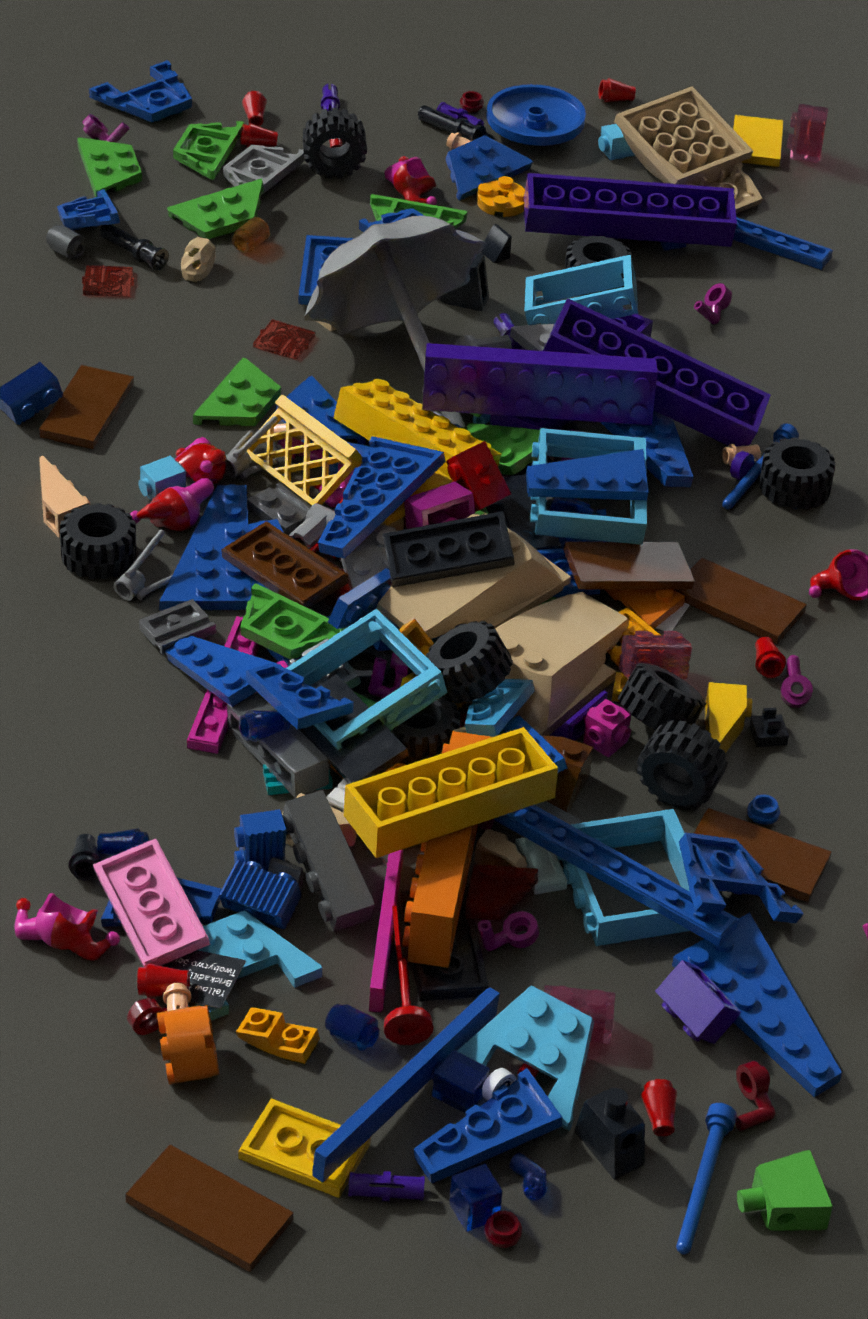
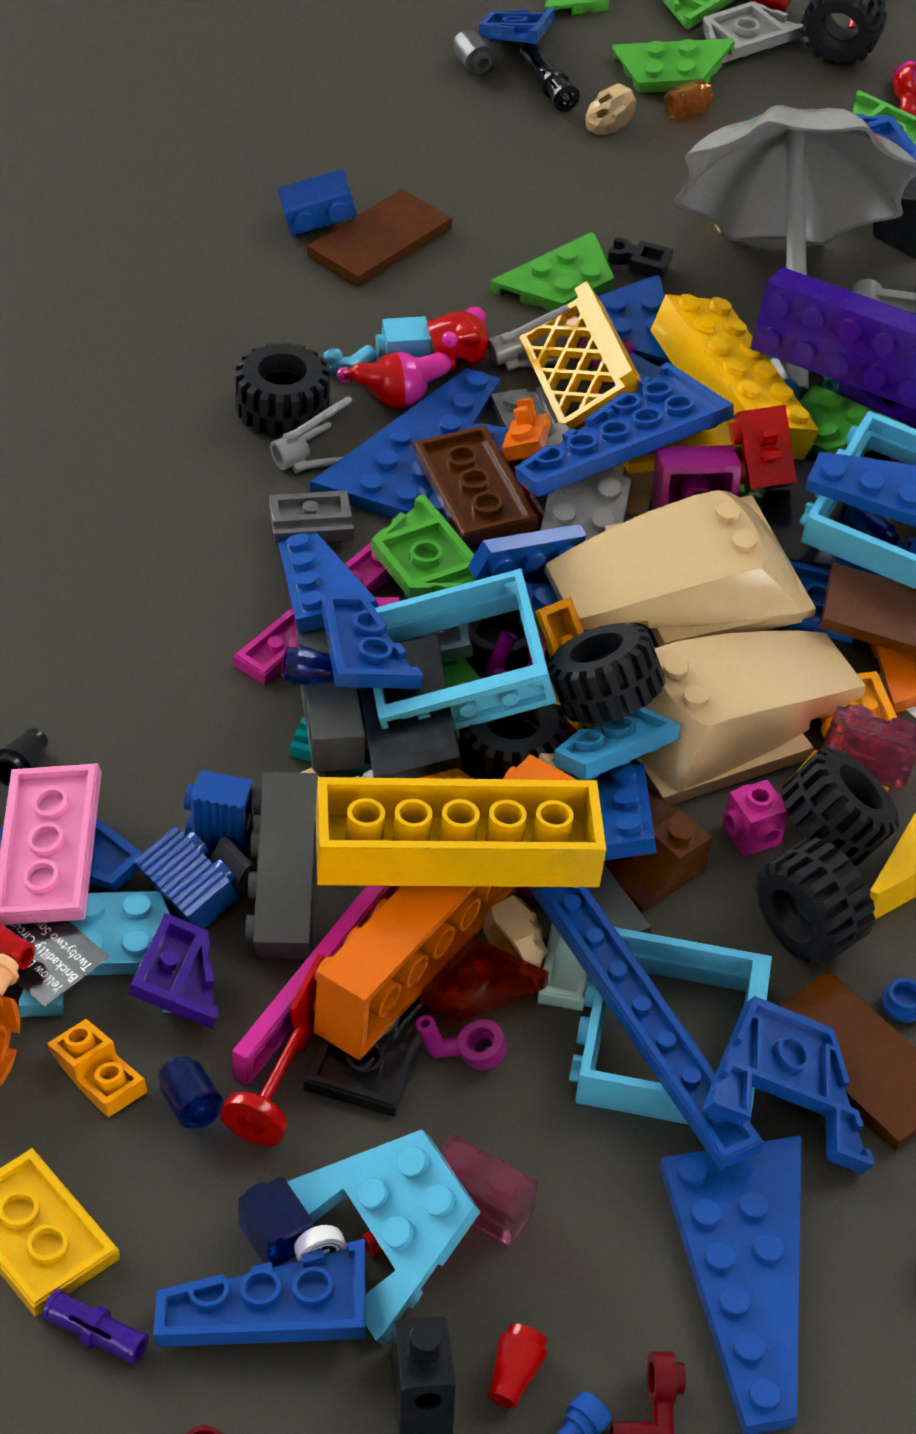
camera: 25 degrees right, 5 degrees up
(57, 495) = (273, 319): light nougat slope -> none
(107, 281) = (497, 107): clear red piece -> none
(120, 841) = (74, 752): clear blue cone -> none
(134, 503) = (336, 360): none -> medium azure arm
(284, 339) = (657, 225): clear red piece -> none
(293, 365) = (643, 259): none -> black plate
(297, 954) = (178, 972): none -> dark purple wing
(299, 517) = (527, 432): none -> orange plate
(402, 1086) = (188, 1200): blue tile -> none
(448, 549) = (661, 524): black tile -> none
(475, 1196) = (188, 1391): clear blue brick -> none
(534, 1176) = (291, 1395): clear blue arm -> none
(575, 725) = (712, 802): dark purple slope -> none
(697, 1002) = (649, 1236): dark purple brick -> none

